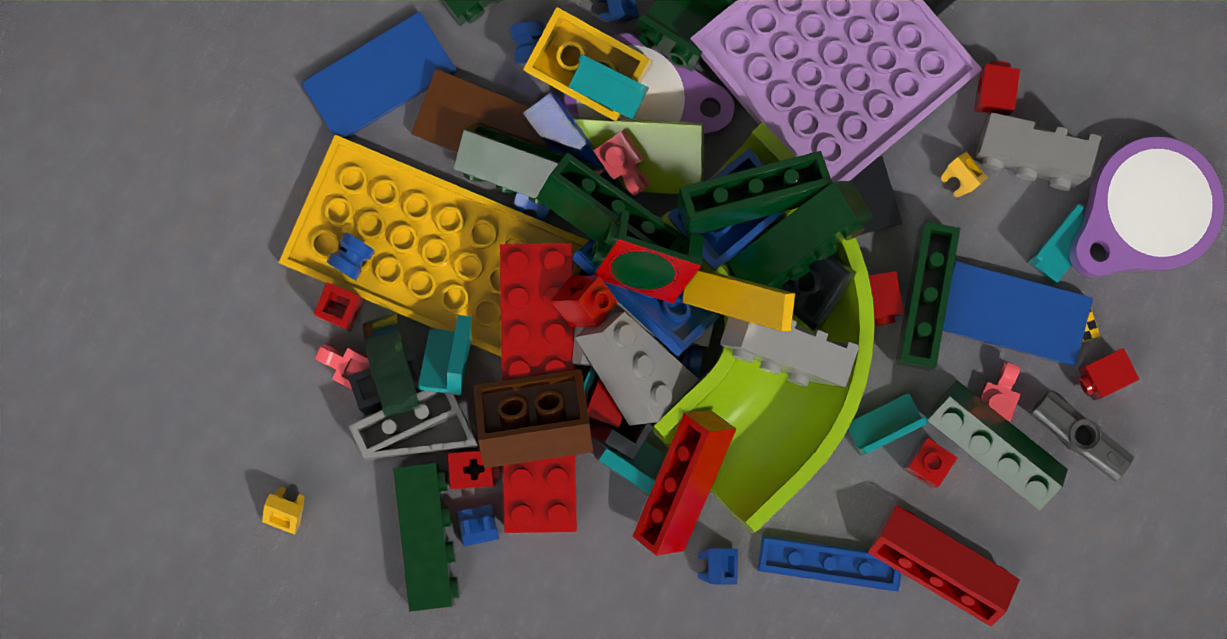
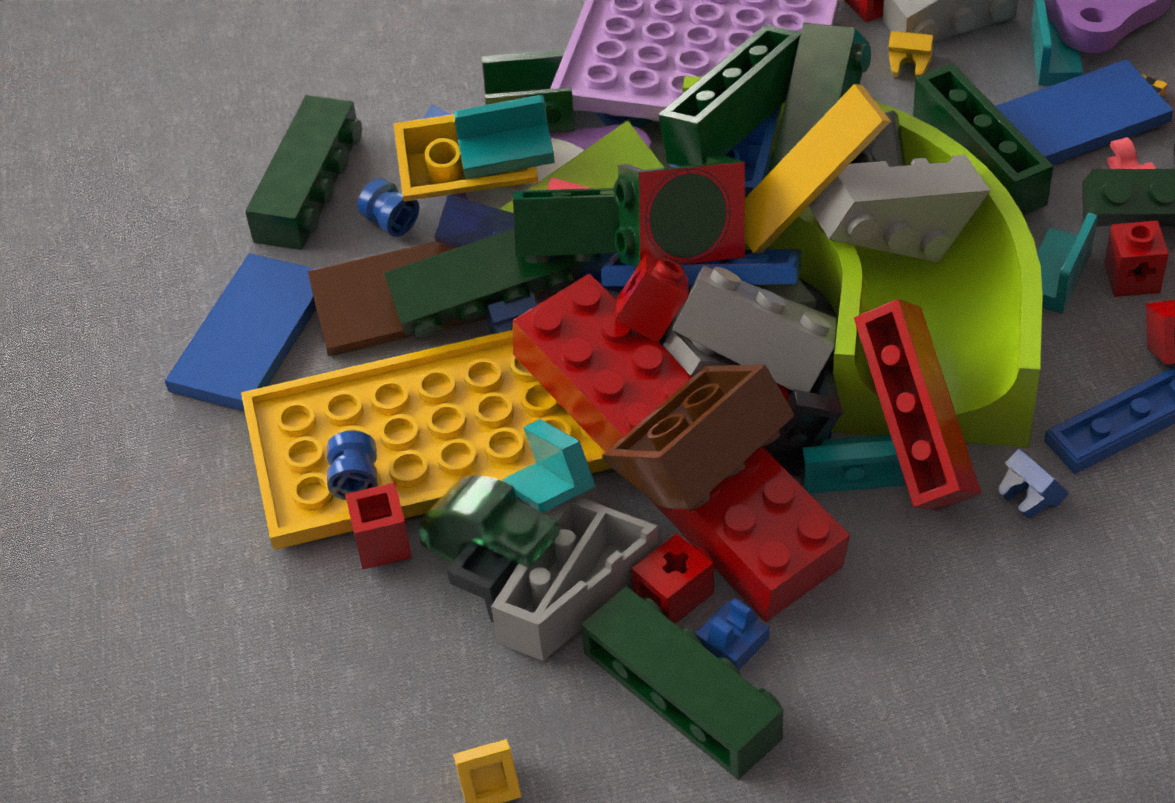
camera: 30 degrees left, 35 degrees down
(345, 365) = (431, 582): coral plate -> none

